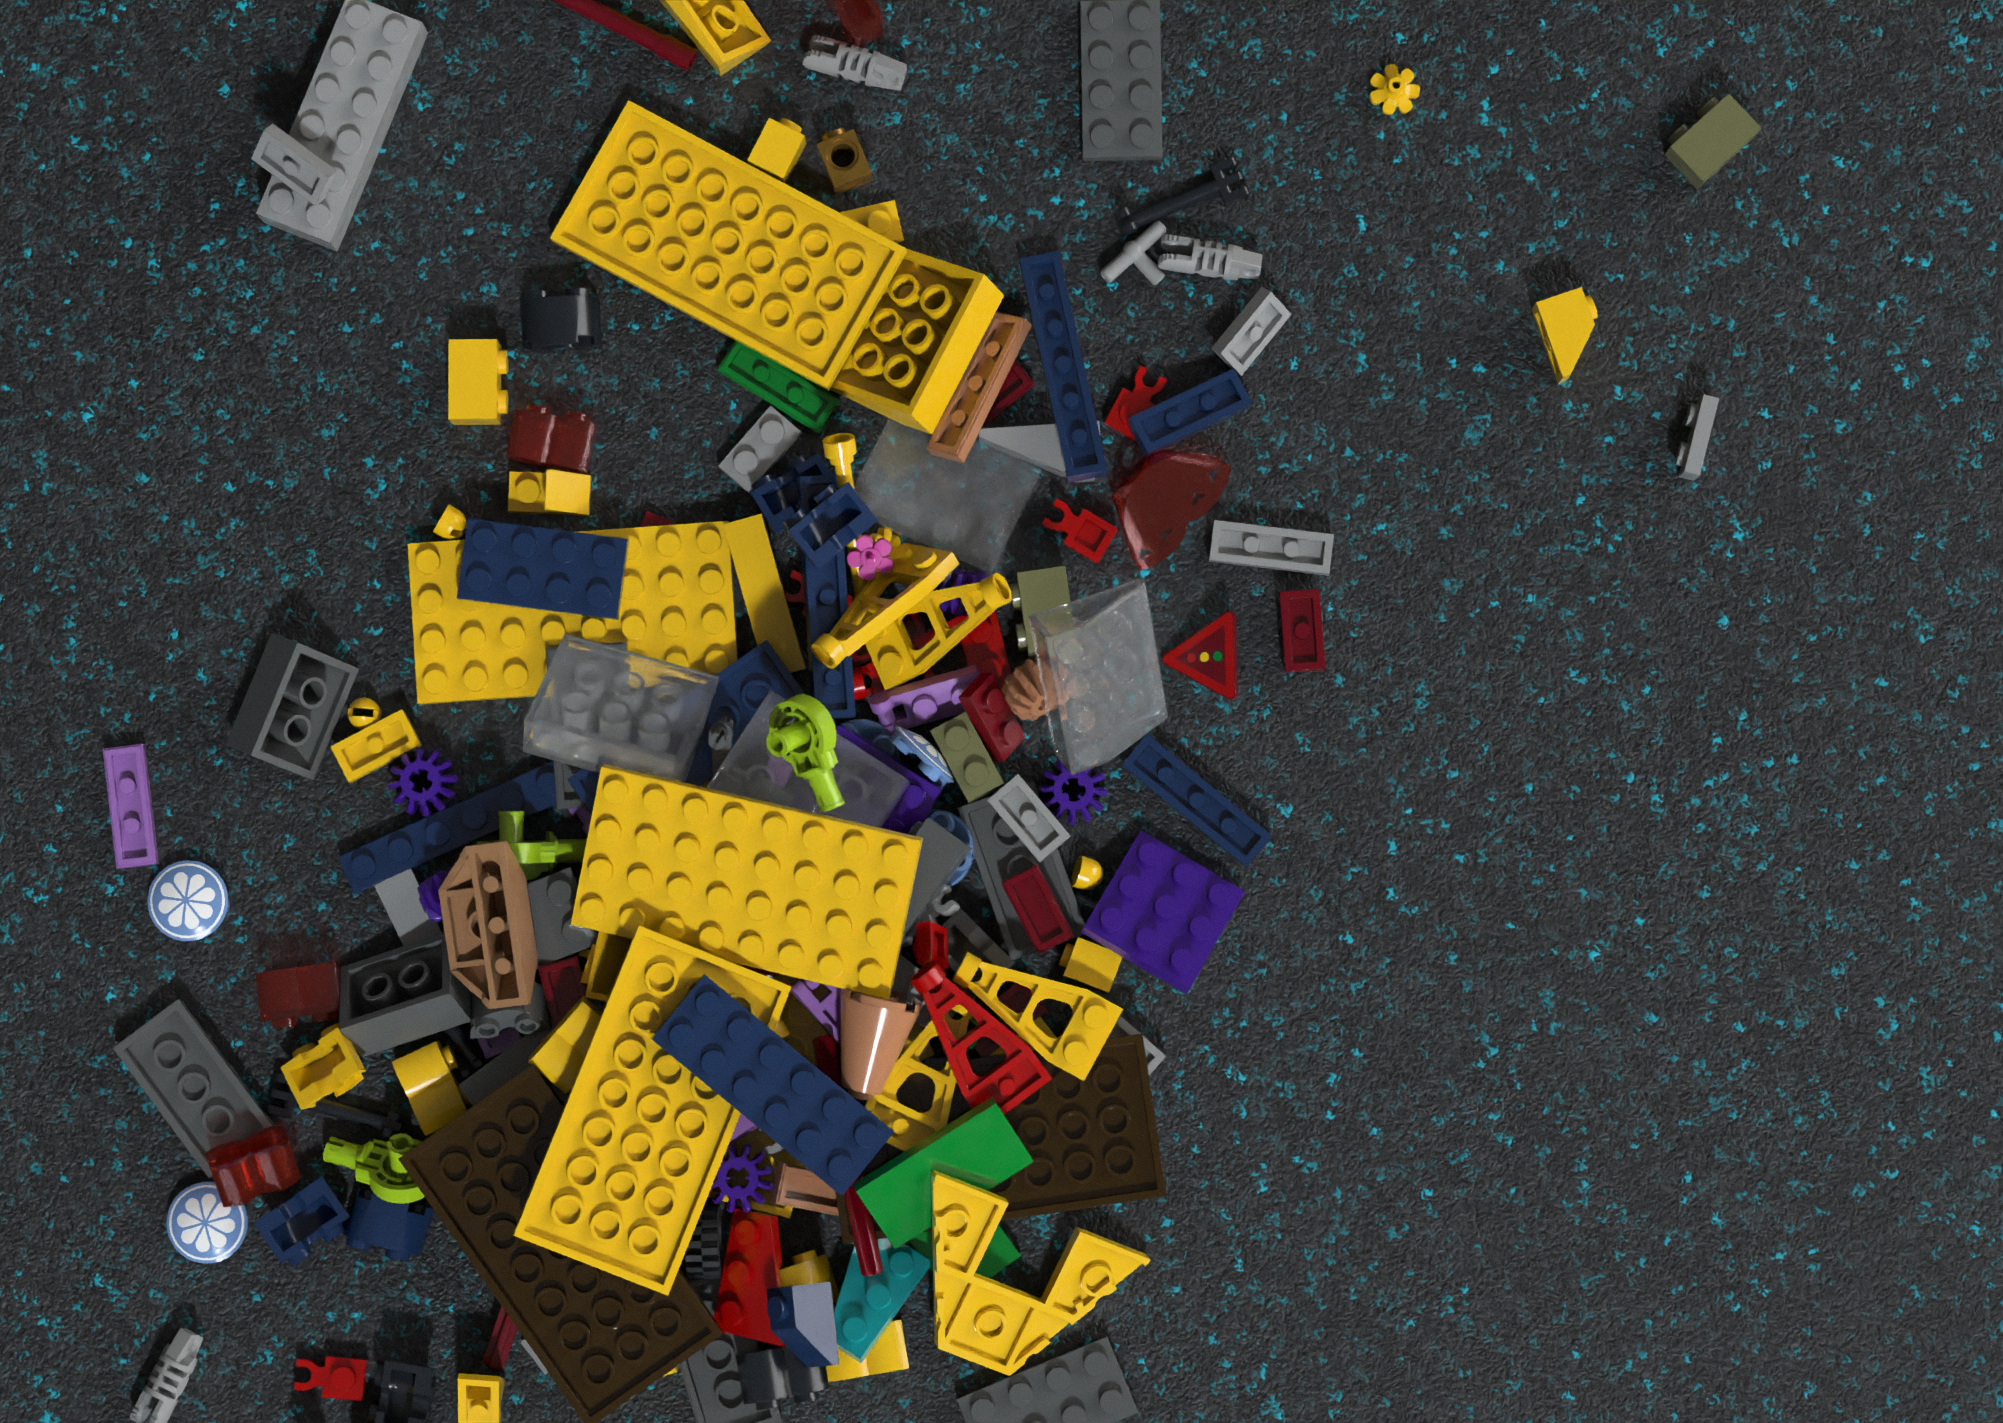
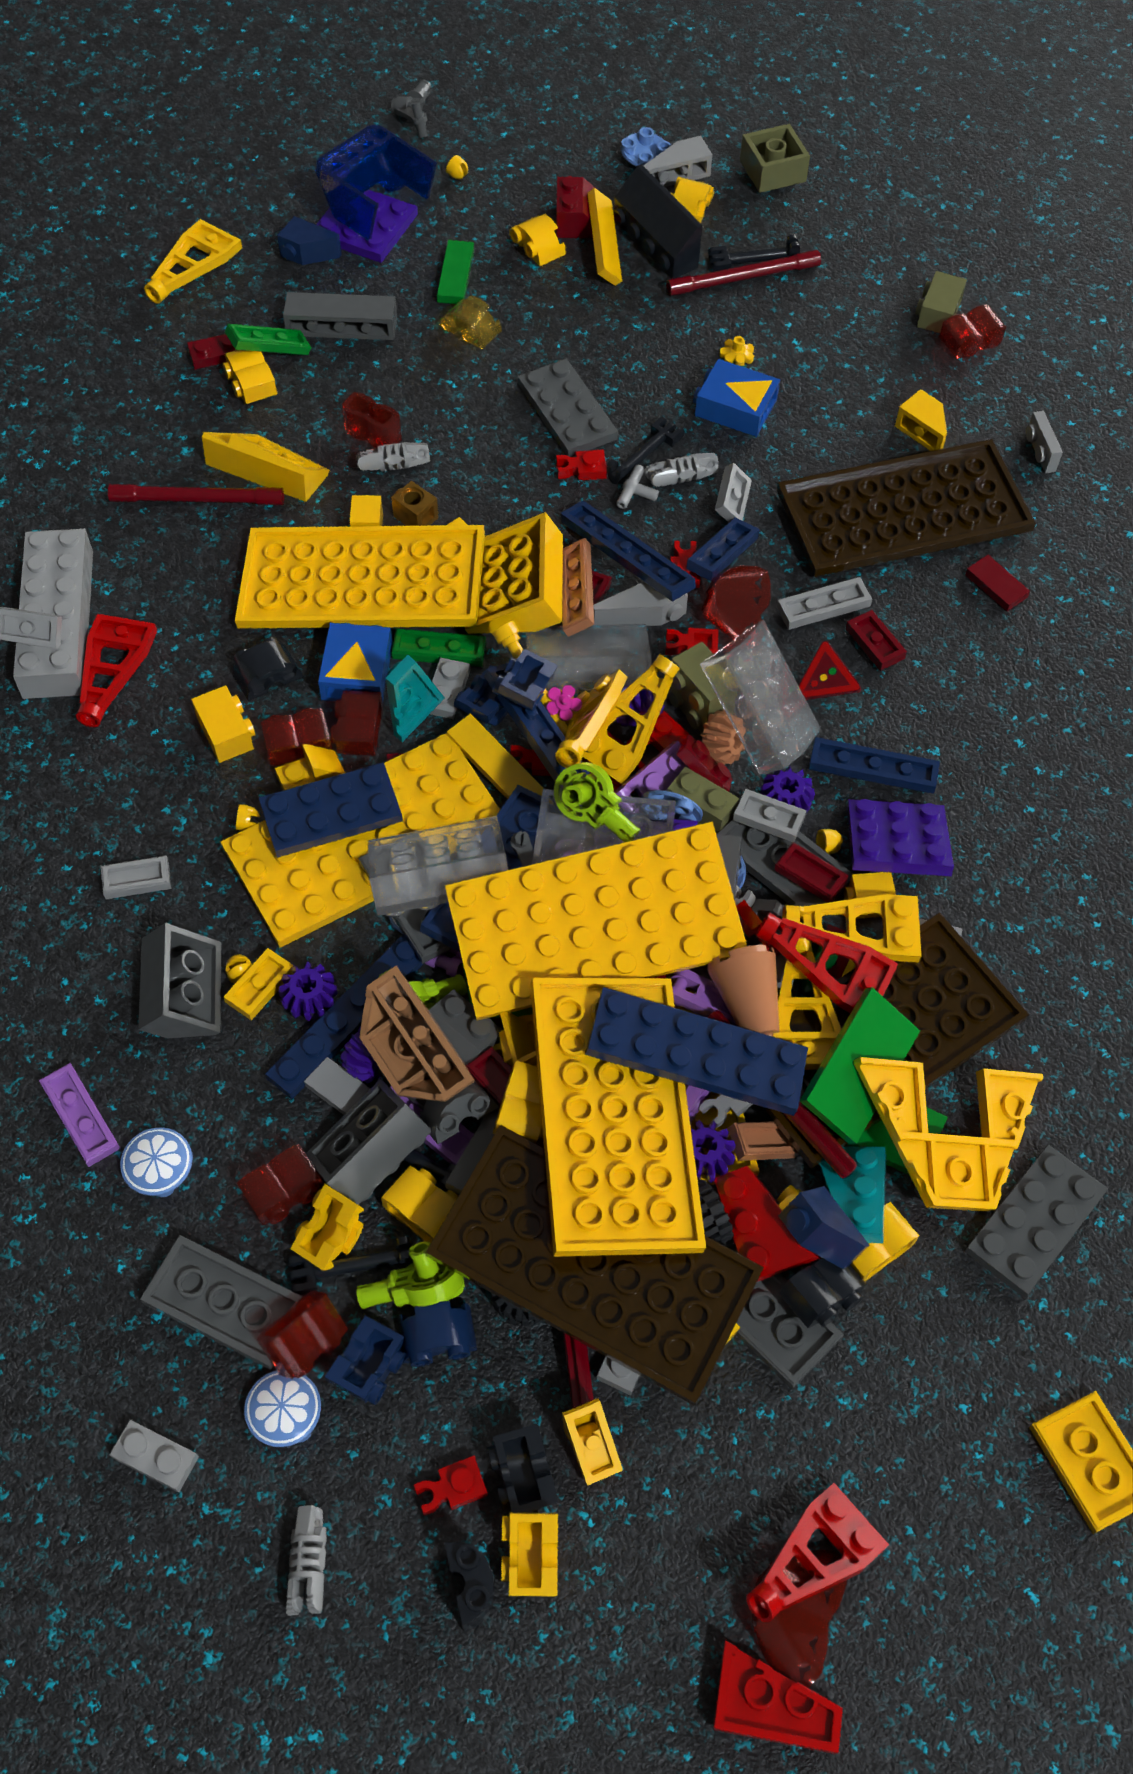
camera: 30 degrees left, 25 degrees down
(68, 1208) = (154, 1456): none -> light grey plate
(299, 540) = (135, 877): none -> light grey tile
(409, 189) = (116, 634): none -> red plate
(631, 455) = (358, 723): none -> clear red brick
(666, 367) = (355, 660): none -> blue brick
(697, 470) = (410, 696): none -> teal wing
(1098, 189) = (586, 464): none -> red plate
(1343, 173) = (736, 397): none -> blue brick
(1458, 451) = (904, 507): none -> dark brown plate
(1505, 617) = (997, 582): none -> dark red tile
(1722, 211) = (972, 331): none -> clear red brick

